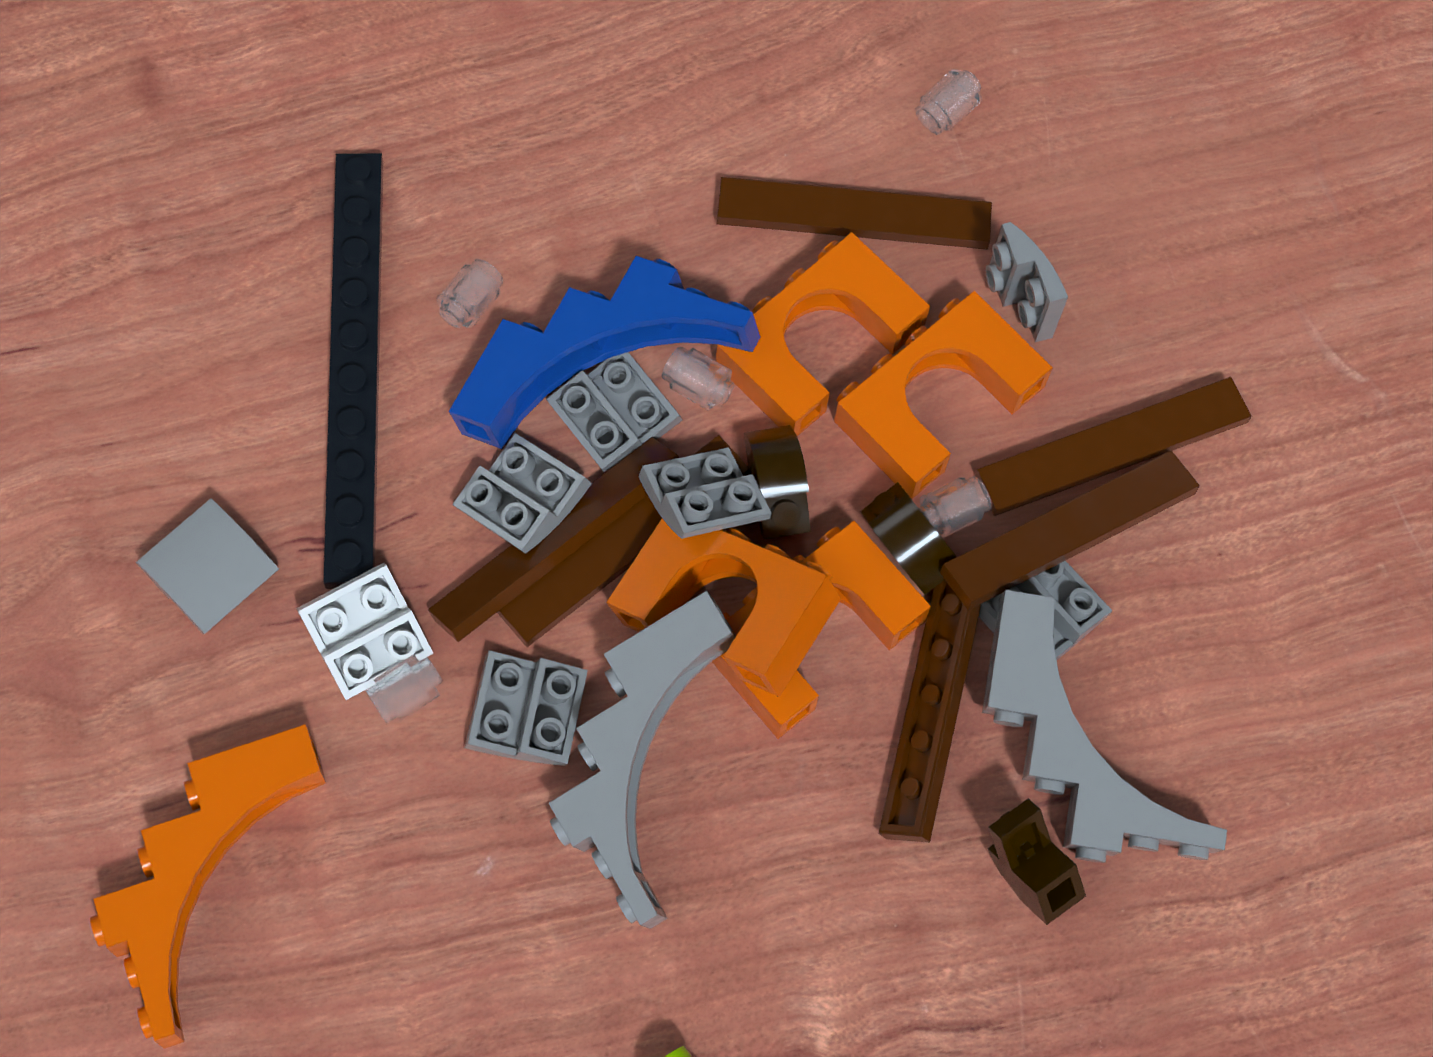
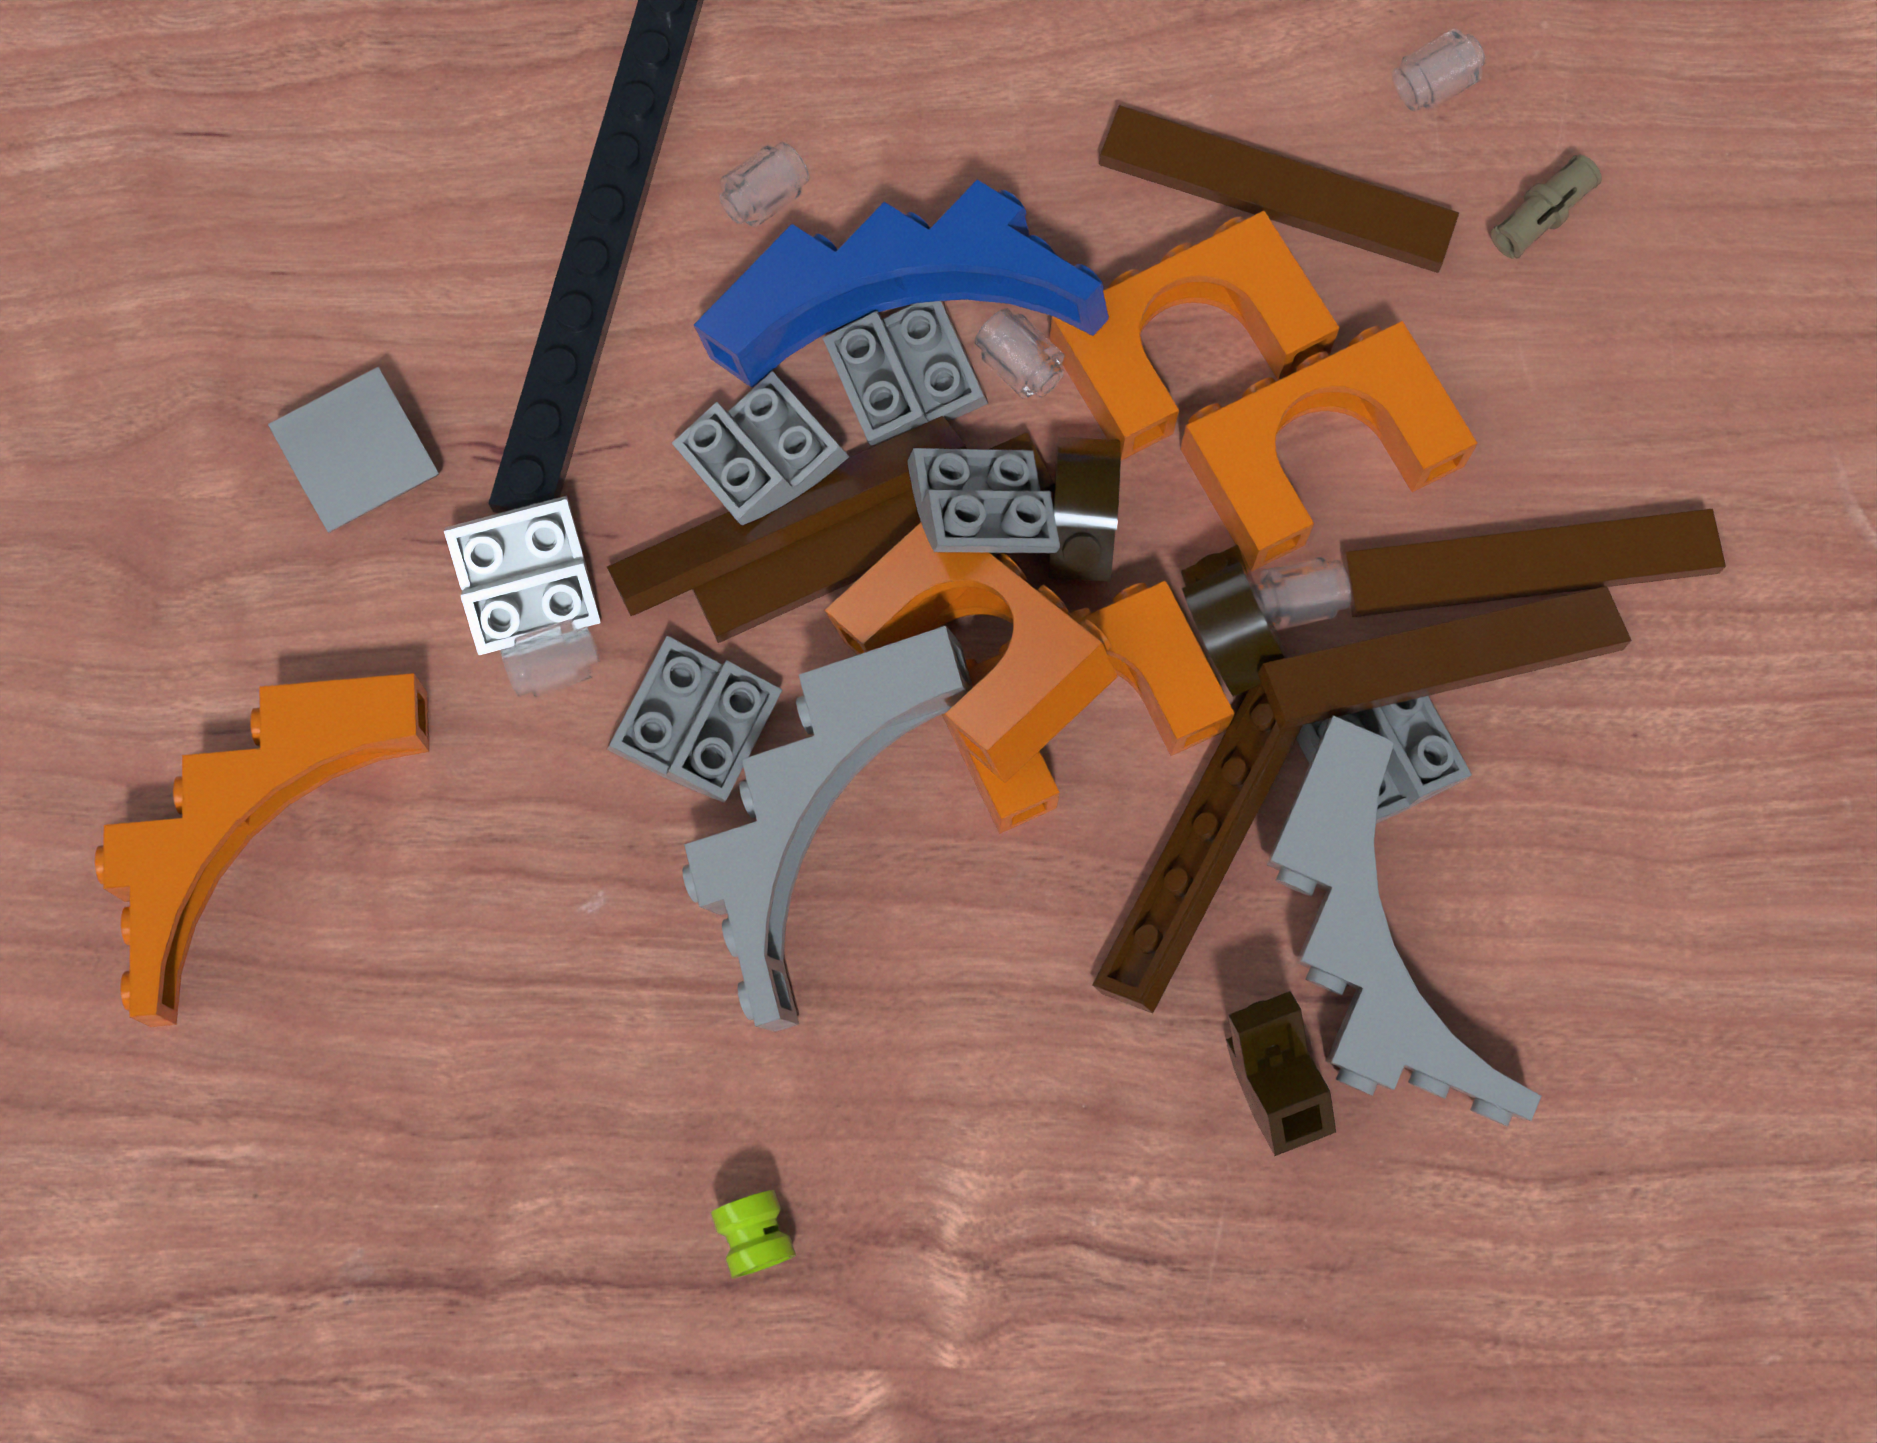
camera: 20 degrees right, 5 degrees up
(1026, 277) = (1475, 322): light grey slope -> none
(1052, 183) = (1546, 206): none -> dark tan pin

